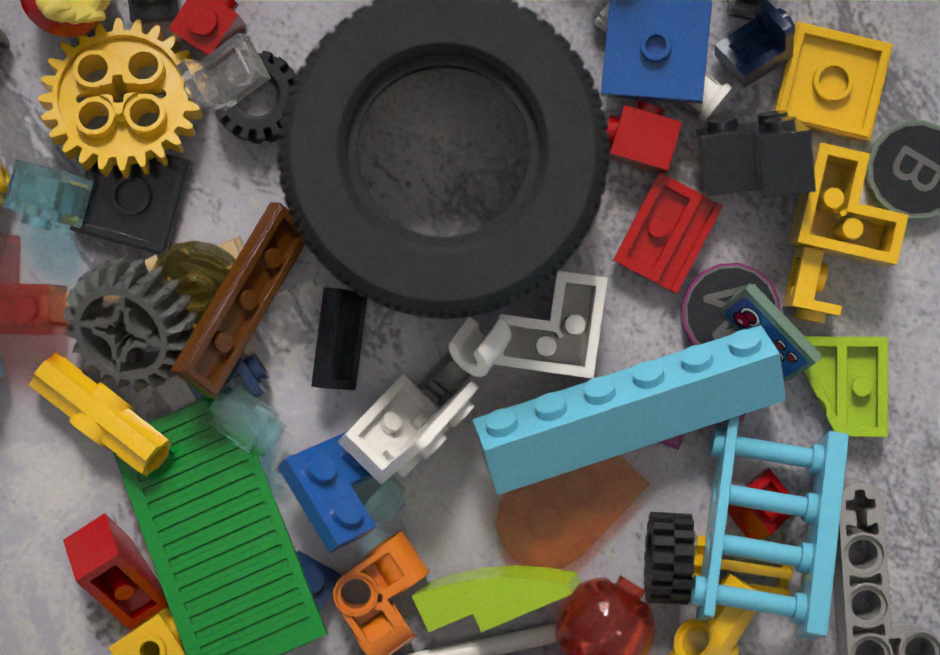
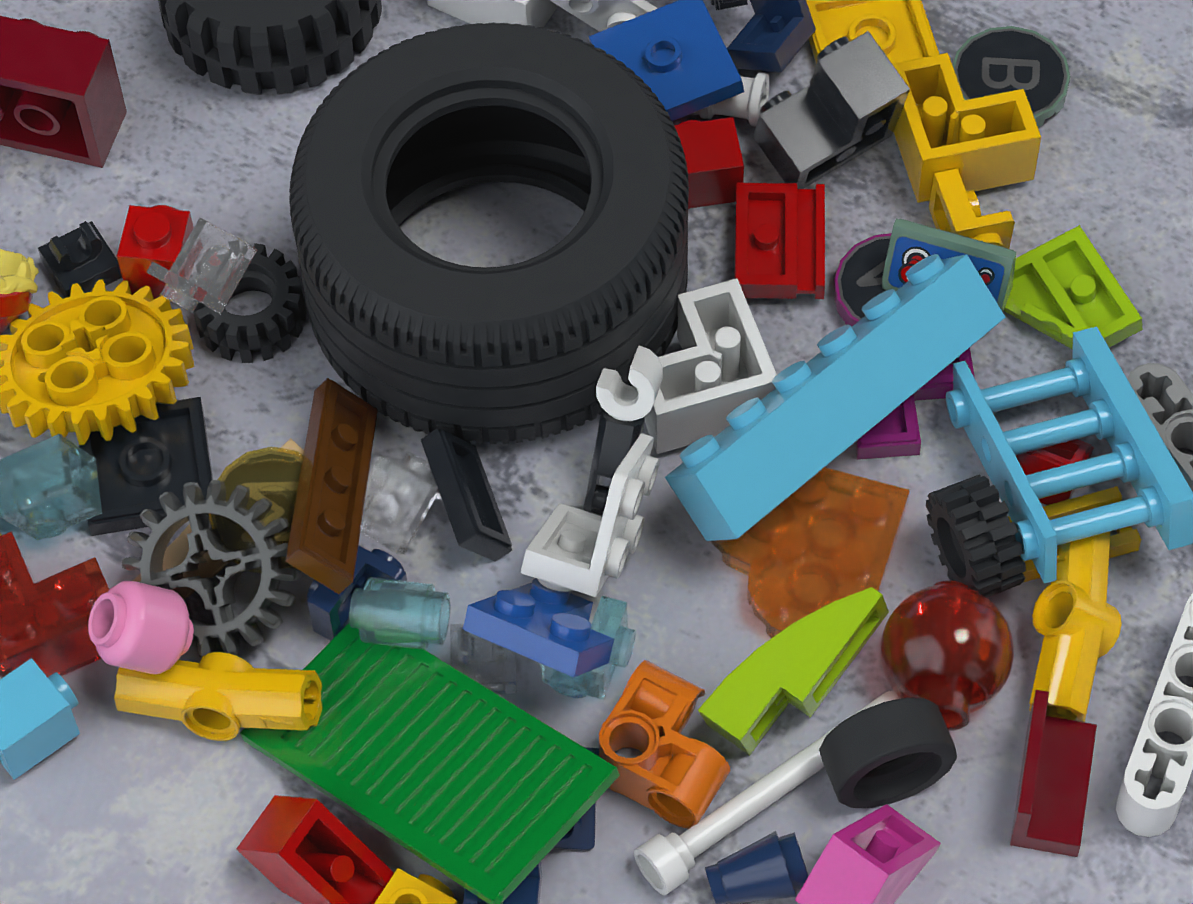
camera: 25 degrees left, 30 degrees down
(54, 364) = (140, 627): none -> bright pink head

